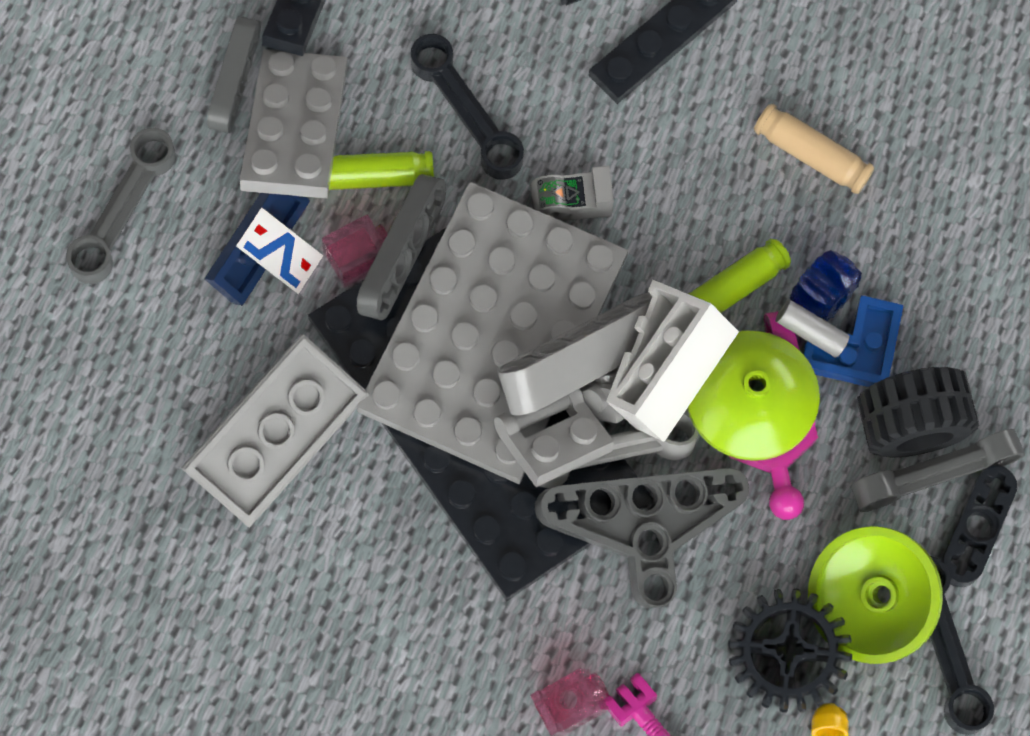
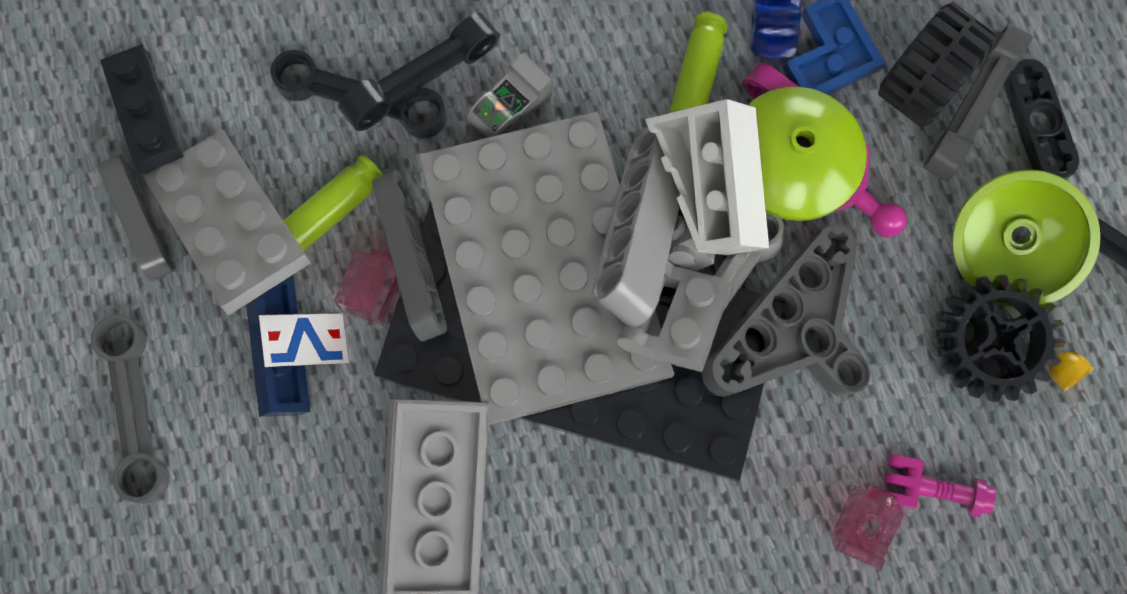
camera: 40 degrees left, 5 degrees up
(467, 117) = (371, 100): none -> black piece
(812, 328) = (797, 61): light grey hinge -> none

